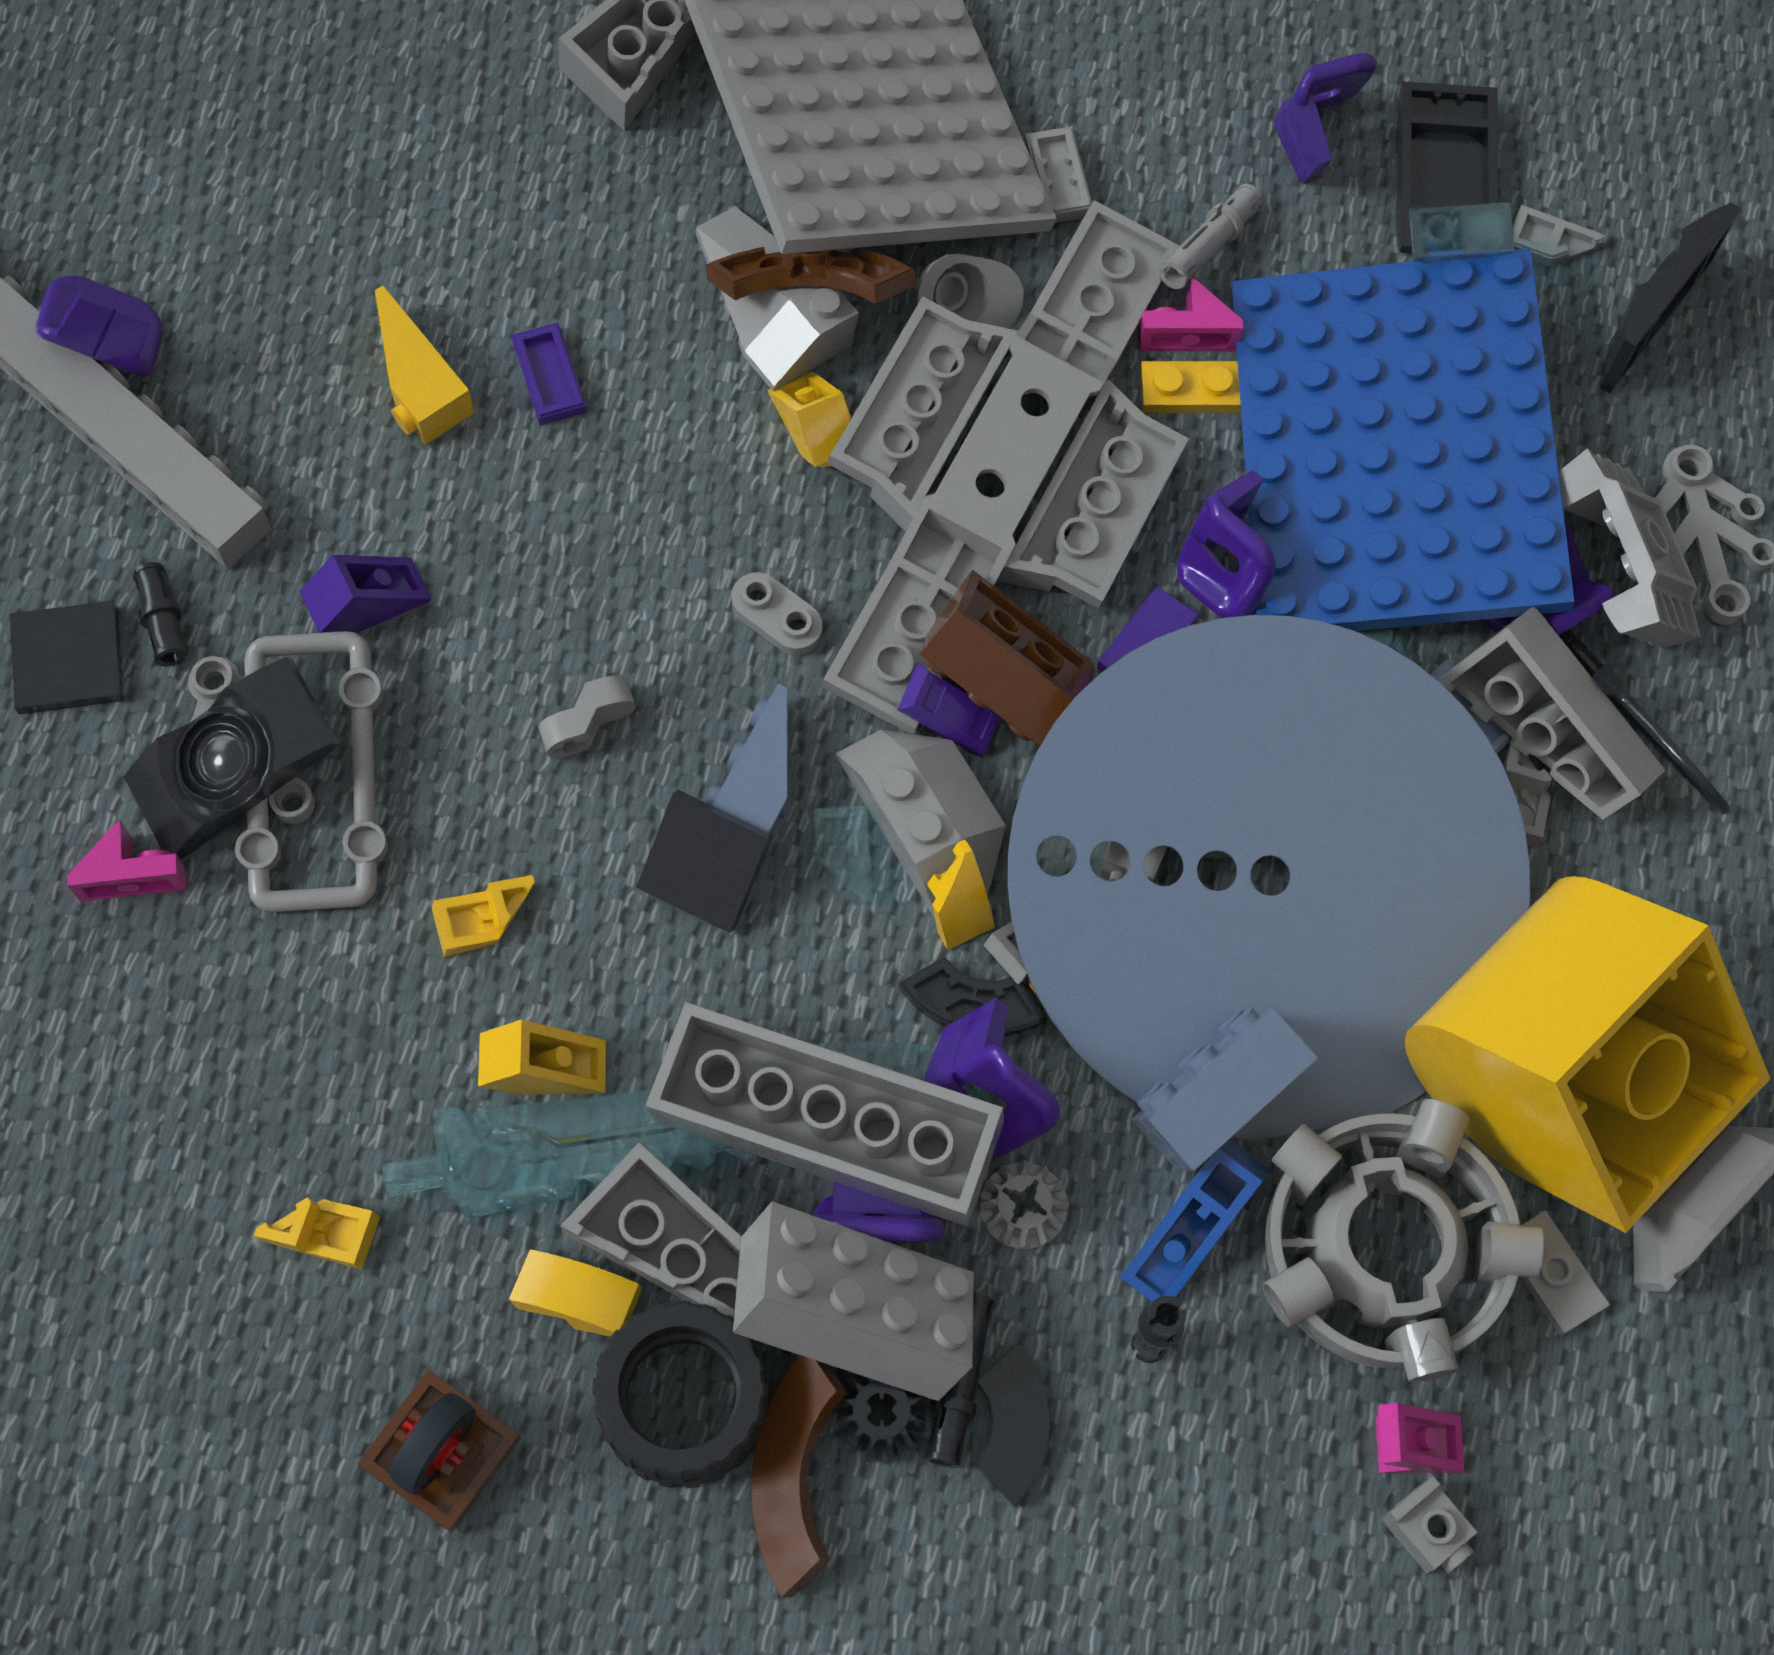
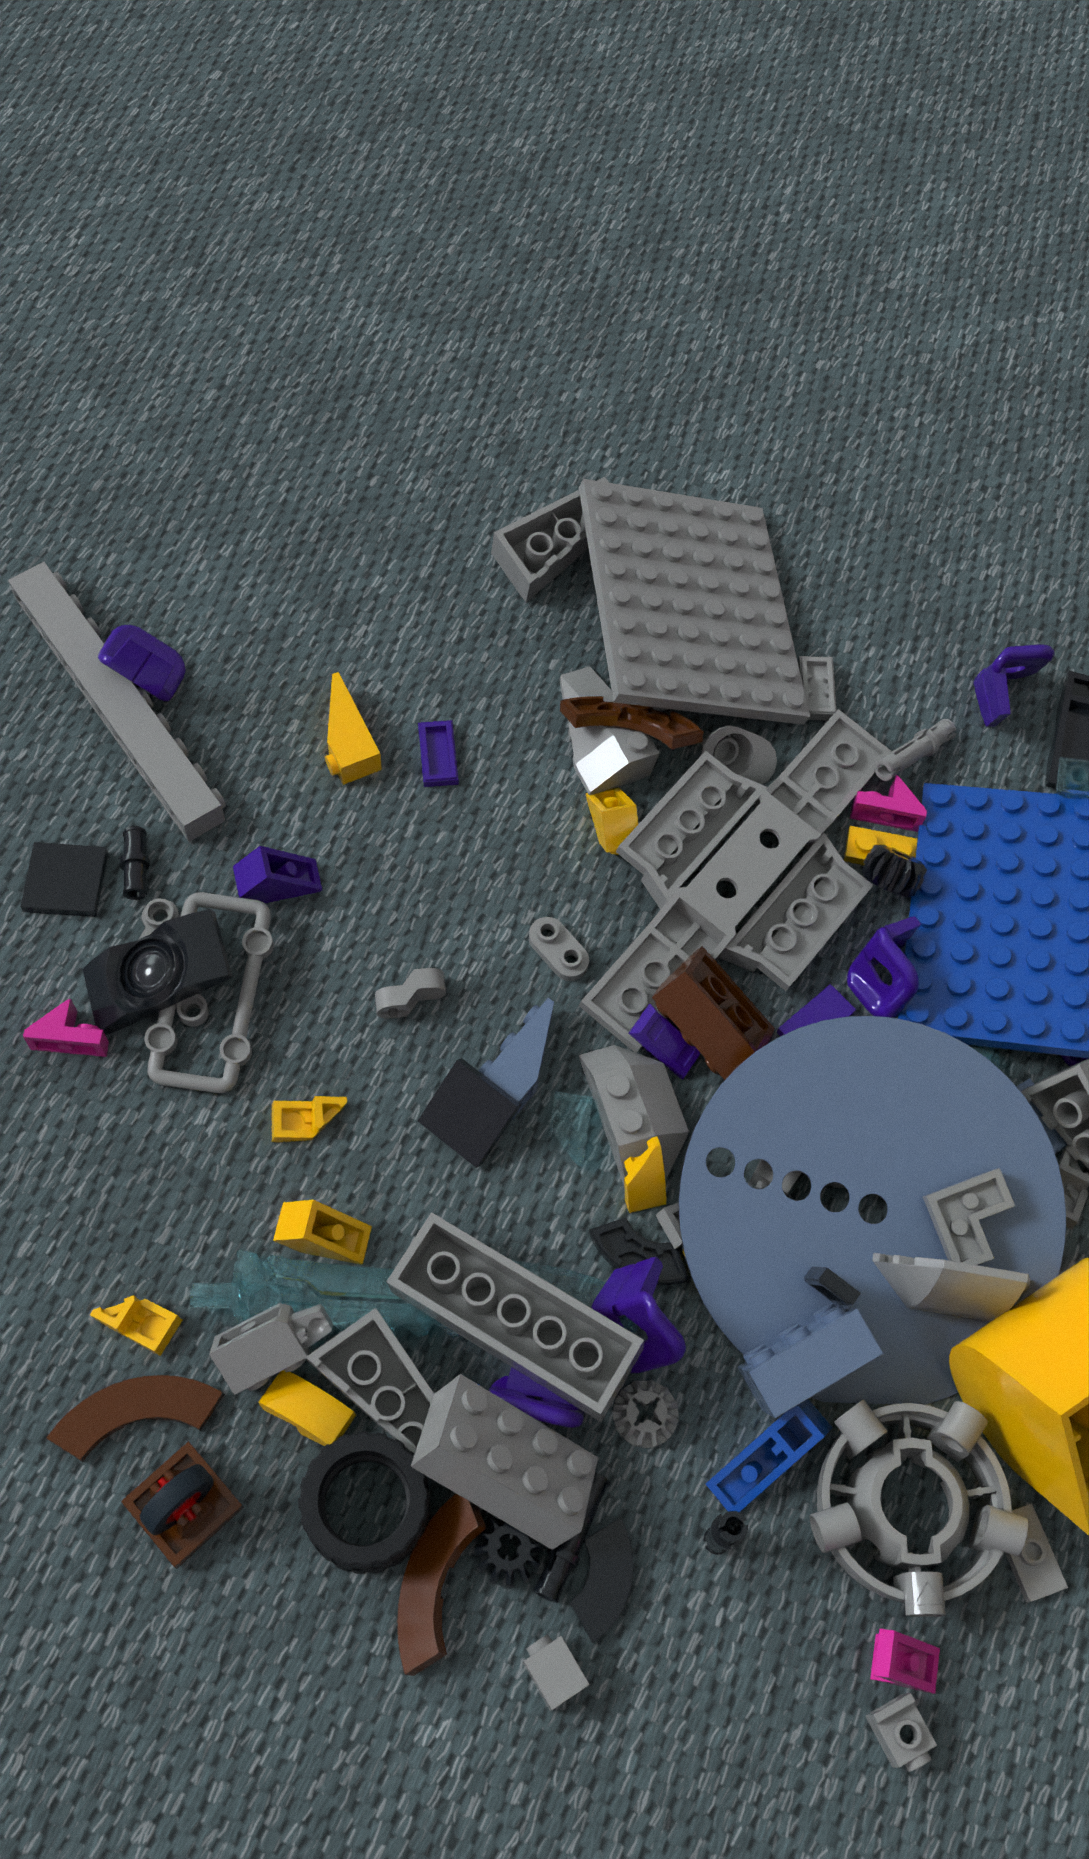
camera: 10 degrees right, 5 degrees down
(339, 1335) = (133, 1401): none -> reddish brown tile
(505, 1222) = (268, 1344): none -> light grey hinge
(973, 1550) = (554, 1671): none -> light grey brick
(1213, 413) = (893, 870): none -> black gear
(1234, 986) = (831, 1286): none -> black tile
(1382, 854) = (958, 1211): none -> light grey plate
(1392, 953) = (952, 1286): none -> light grey wedge

